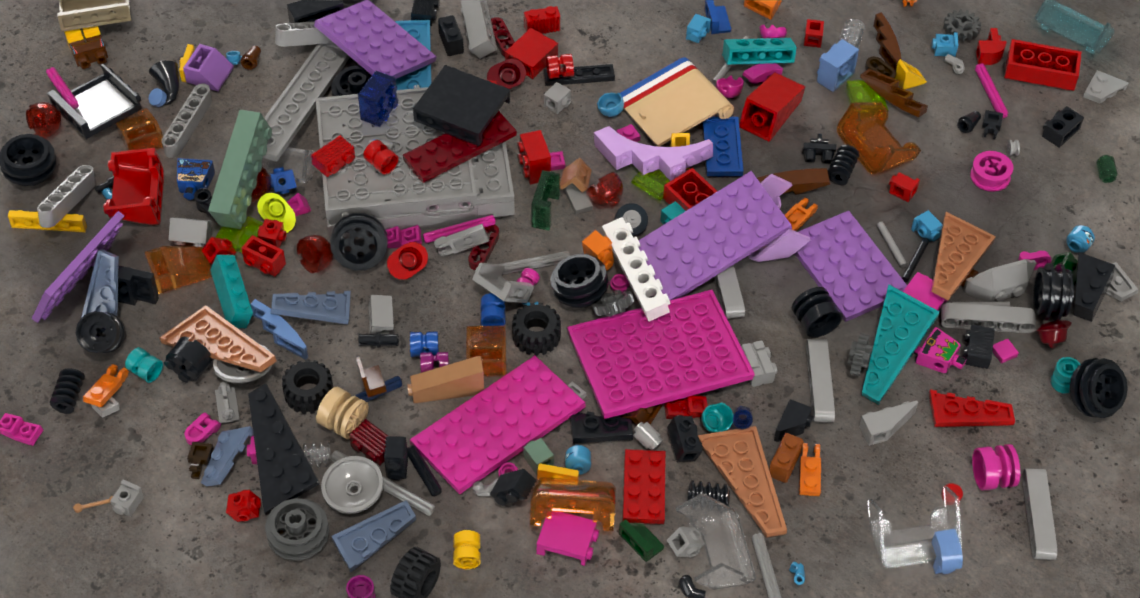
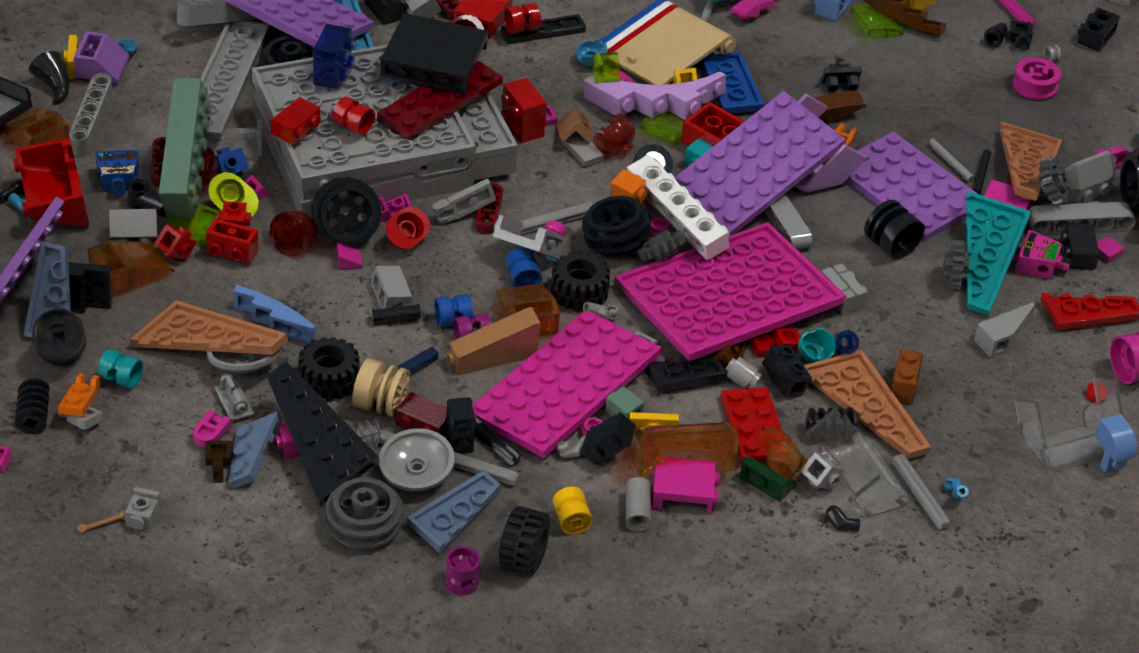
camera: 15 degrees left, 10 degrees down
(157, 97) = (46, 95): medium blue tile -> none
(188, 359) = (175, 355): black brick -> none
(231, 290) = (203, 279): teal brick -> none
(243, 505) = (291, 498): red brick -> none
(250, 58) = (148, 45): reddish brown cone -> none
(321, 307) = (316, 287): sand blue wing -> none
(355, 279) = (348, 256): none -> dark pink slope
(372, 379) = (402, 352): panel -> none
(433, 235) = (426, 203): dark pink axle -> none
(523, 550) = (638, 504): none -> light grey pin
(547, 188) = (550, 152): clear green panel -> none
(549, 358) = (609, 313): none -> light grey arm
(557, 98) = (527, 52): light grey brick -> none
(578, 458) = (671, 402): dark azure head -> none
(613, 125) = (606, 67): none -> clear neon green panel
(652, 526) = (781, 453): none -> clear orange piece
(729, 87) = (726, 24): dark pink hair -> none
(770, 106) = (774, 38): red slope -> none
(794, 420) = (902, 335): black slope -> none
(810, 472) = (936, 389): orange hinge -> none
(820, 380) = (918, 298): light grey beam -> none
(843, 164) = (874, 86): black piece -> none
(865, 130) = (884, 54): clear orange windscreen -> none
(903, 186) = (946, 102): red brick -> none
(927, 226) = (985, 136): dark azure brick -> none
(968, 284) = (1053, 181): none -> dark grey gear

